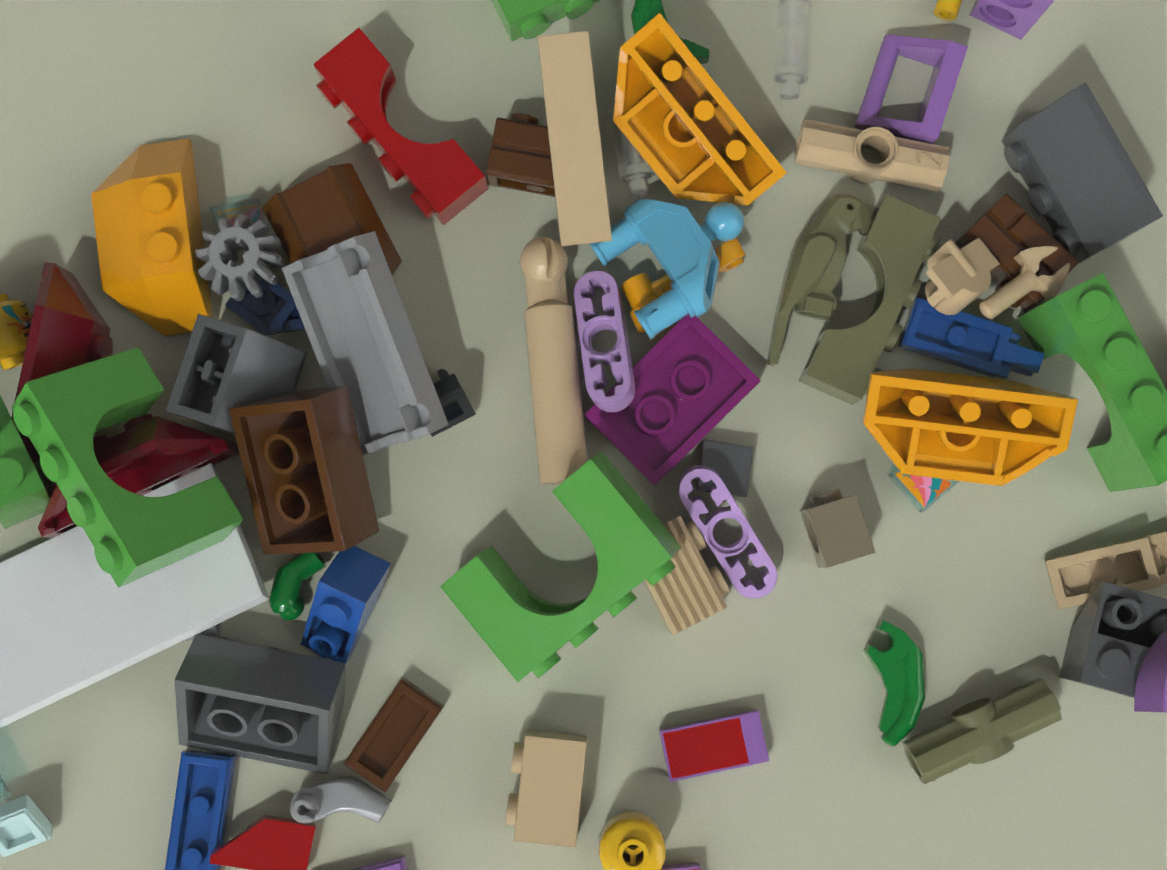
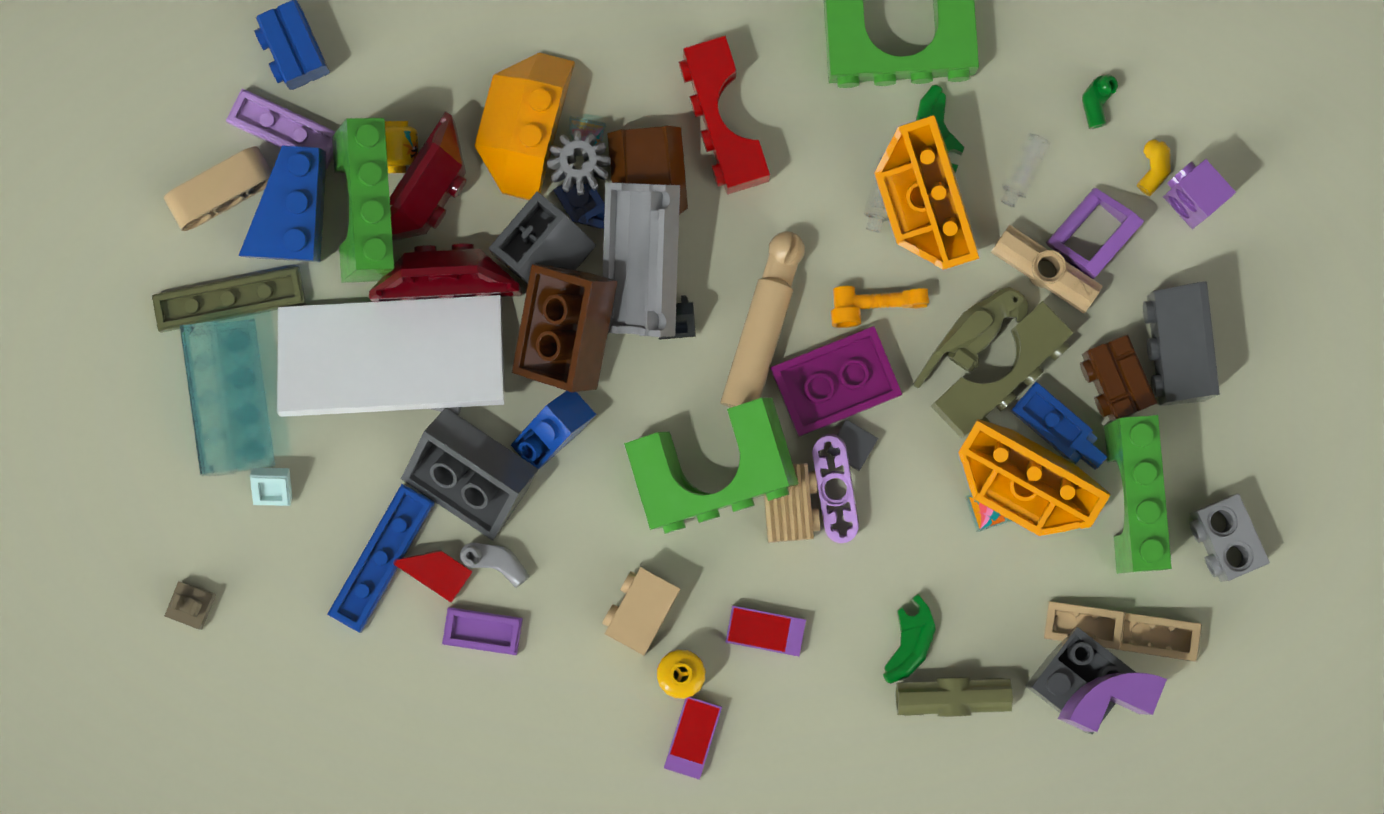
camera: 25 degrees right, 0 degrees up
(128, 530) = (438, 318): bright green arch -> none
(288, 581) = (519, 400): green arm -> none
(394, 735) = (549, 532): reddish brown tile -> none
(521, 156) = (814, 176): reddish brown brick -> none
(574, 138) = (841, 175): tan slope -> none
(588, 326) = (811, 337): lavender beam -> none
(682, 251) = (884, 282): medium azure connector -> none
(836, 529) = (912, 517): dark tan brick -> none
(958, 275) = (1067, 377): tan piece -> none
(1026, 282) = (1111, 401): tan bar -> none

